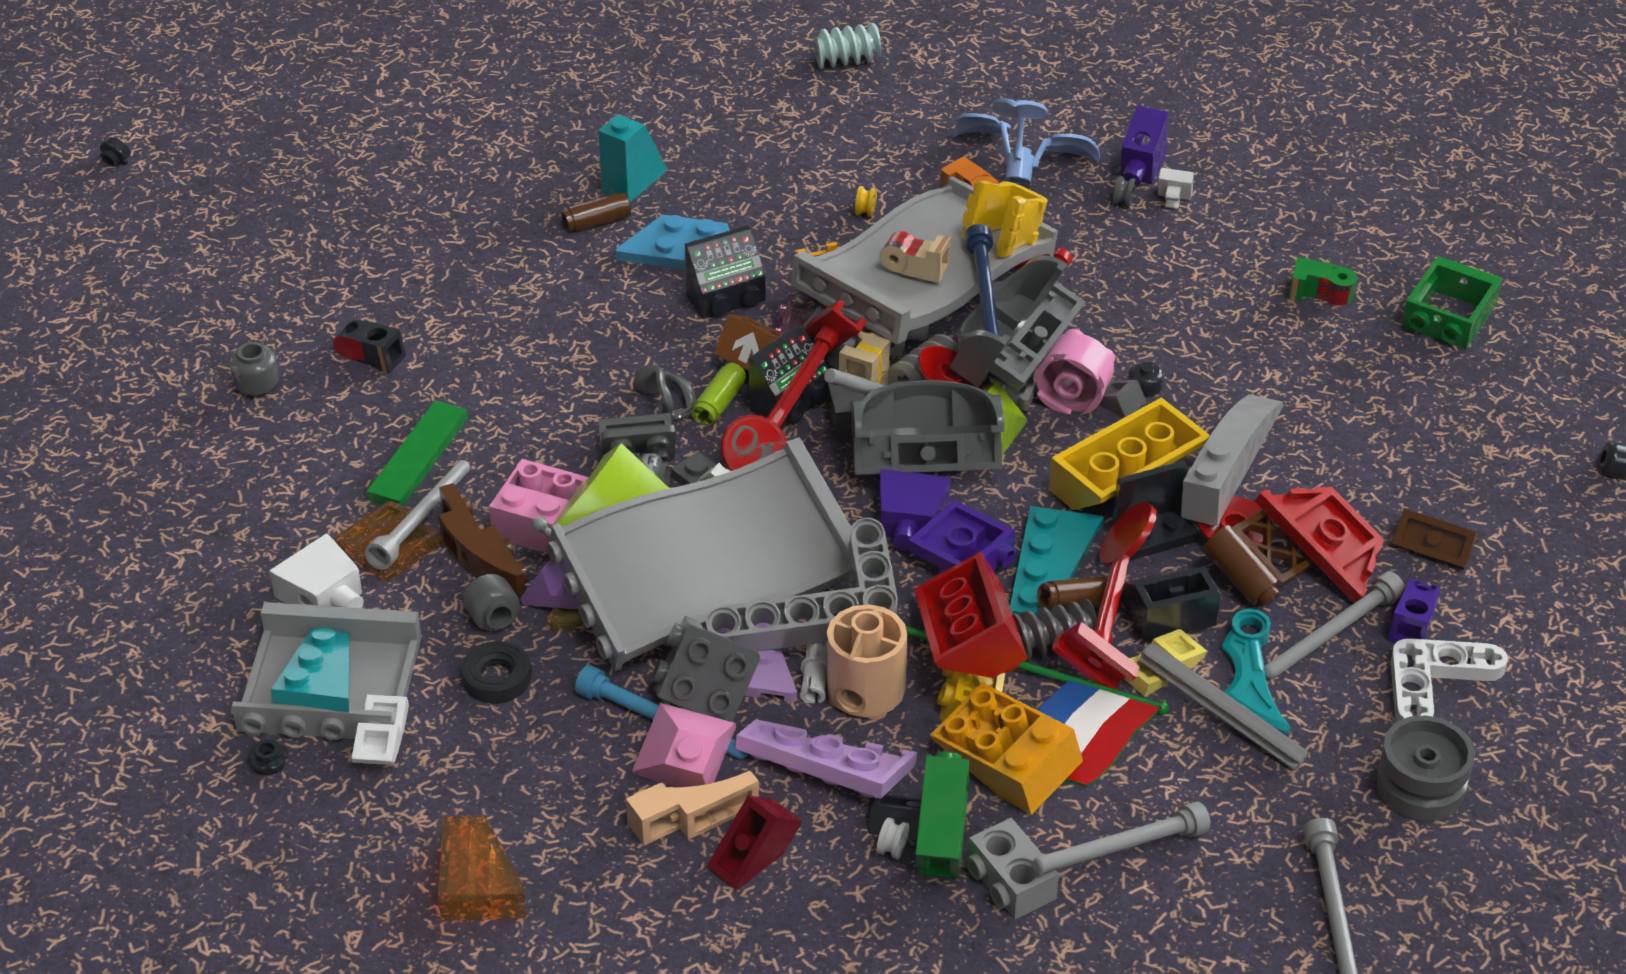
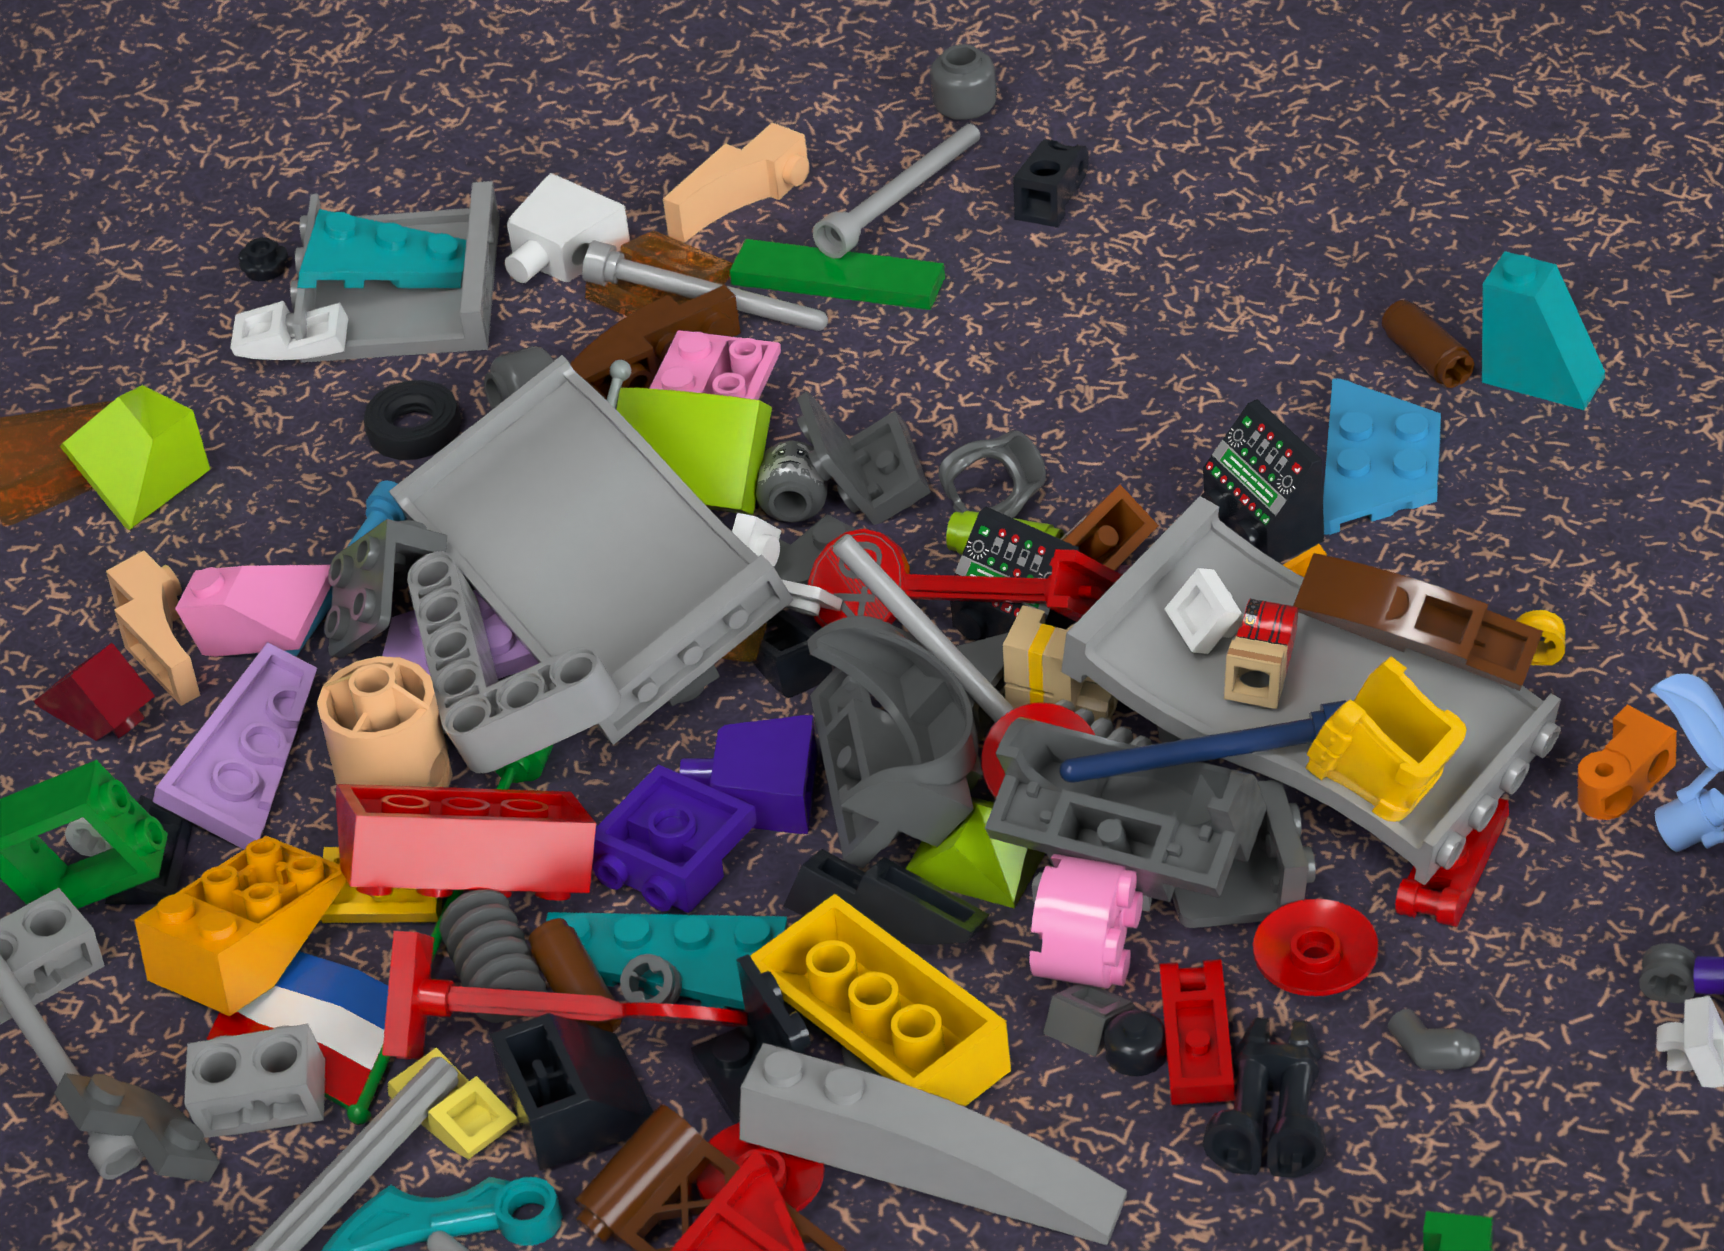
camera: 90 degrees right, 0 degrees up
(294, 475) = (735, 178): none -> light nougat slope
(393, 435) = (841, 230): none -> light grey piece
(505, 803) = (139, 453): none -> lime slope
(886, 268) = (1204, 611): none -> white tile
(906, 198) = (1417, 617): none -> reddish brown slope
(1032, 461) = (888, 896): none -> black slope
(1090, 555) = (634, 972): none -> dark grey bush
(1103, 302) = (1318, 929): none -> red dish
(1146, 743) = (255, 1081): none -> light grey brick
(1161, 277) = (1433, 1047): none -> dark grey arm
(1168, 354) = (1197, 1033): none -> red plate
(1174, 327) = (1296, 1140): none -> black piece
(1184, 796) = (158, 1128): none -> dark grey plate

